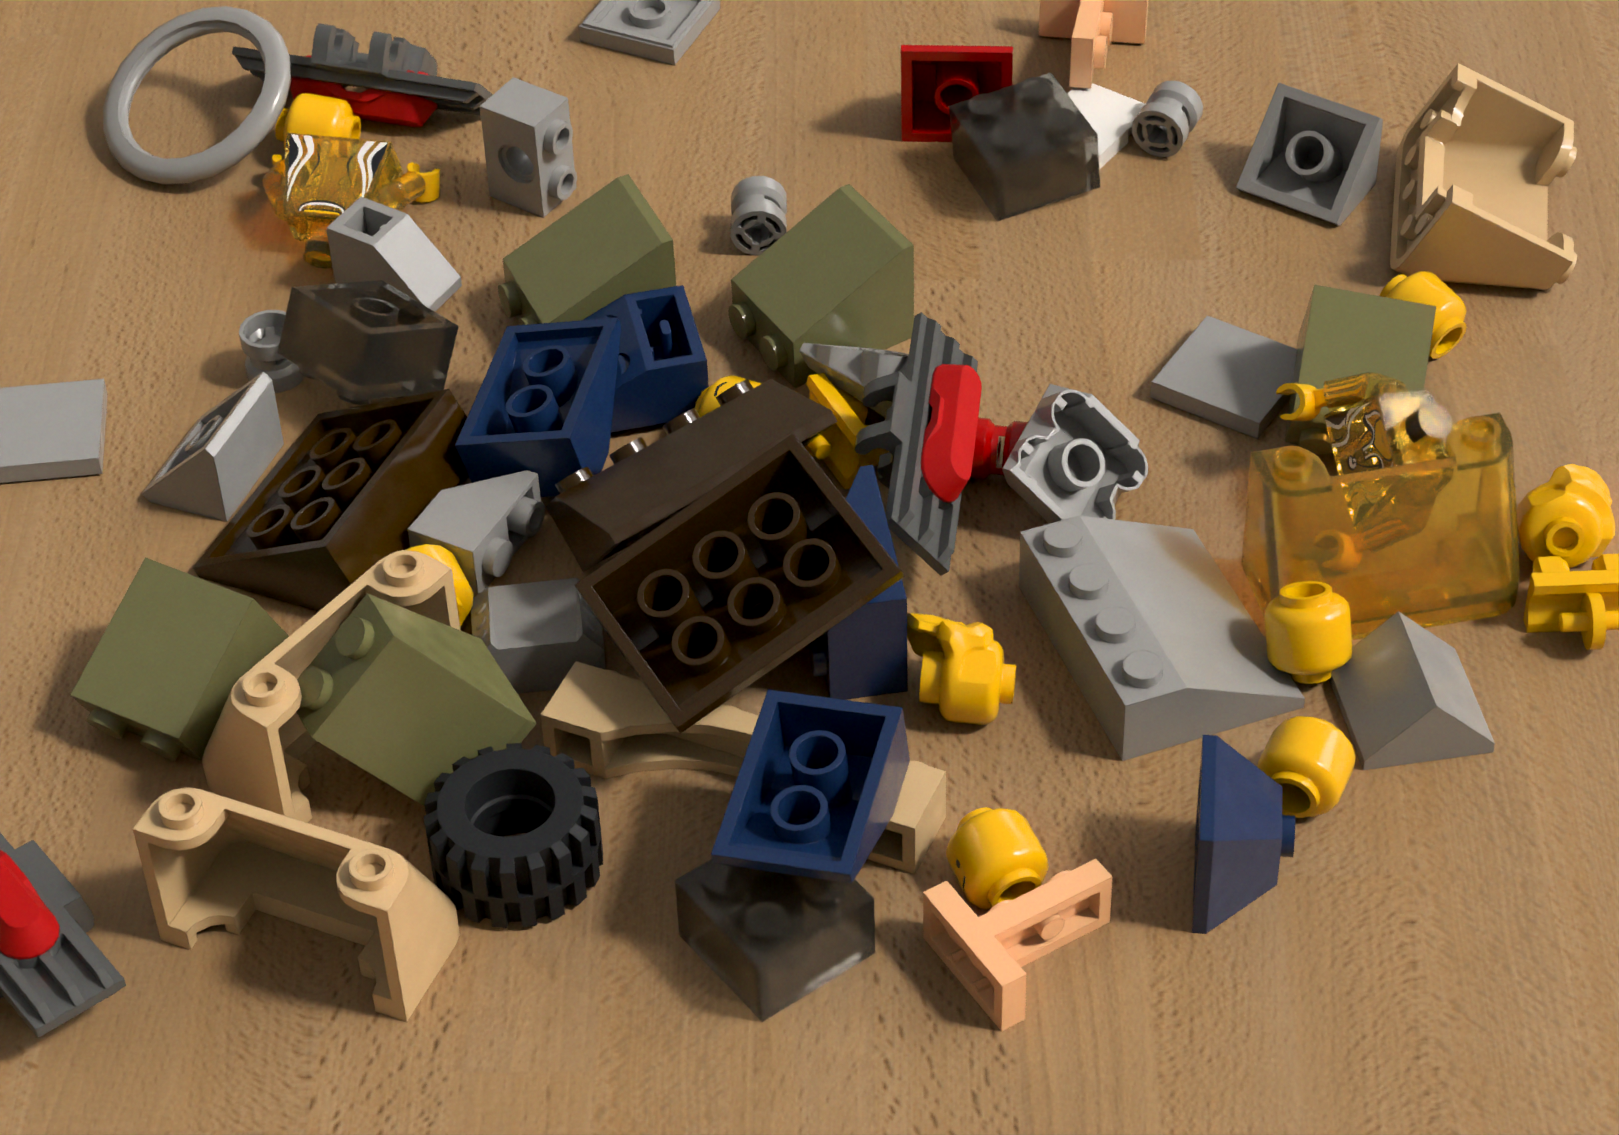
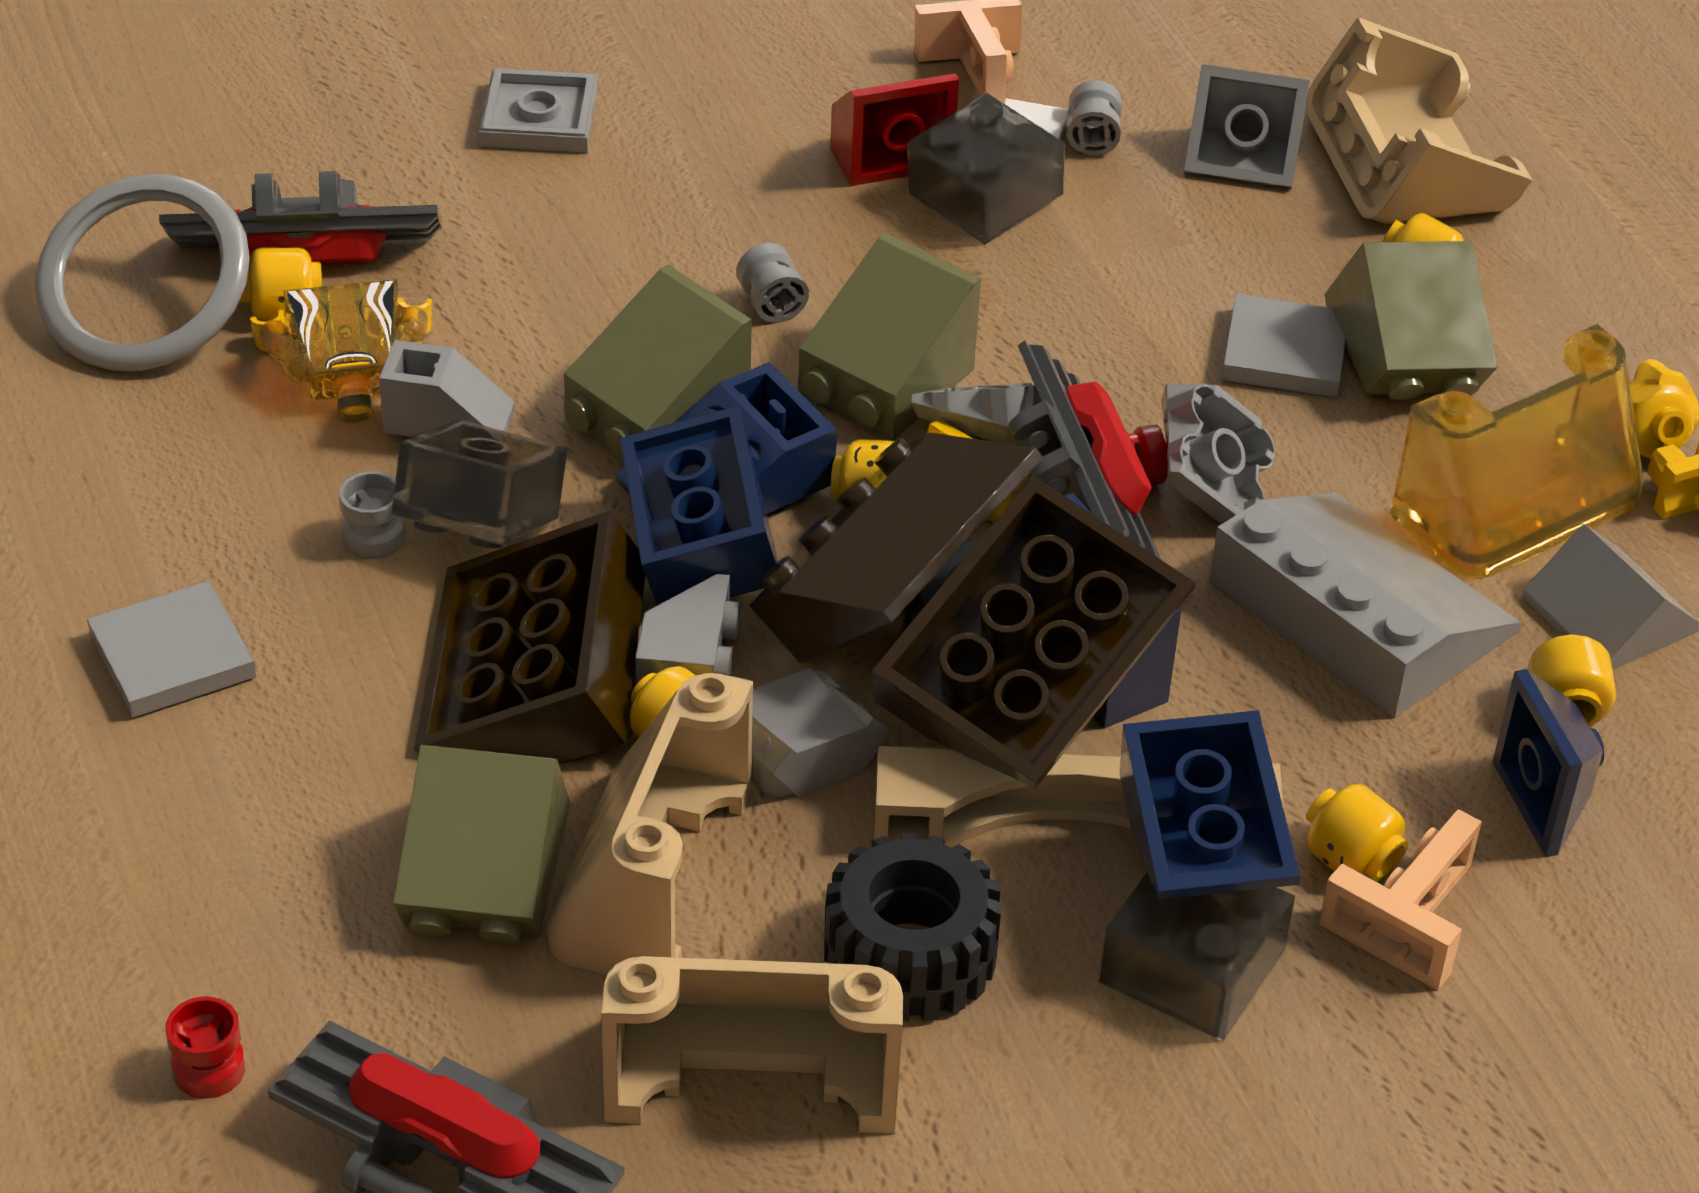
camera: 25 degrees left, 0 degrees up
(222, 454) = (374, 628): light grey slope -> none
(408, 697) = (767, 823): olive slope -> none
(528, 147) = (523, 259): light grey brick -> none
(961, 668) = (1227, 667): yellow head -> none
(1308, 631) = (1507, 560): yellow head -> none
(1374, 421) = (1486, 356): clear yellow torso -> none

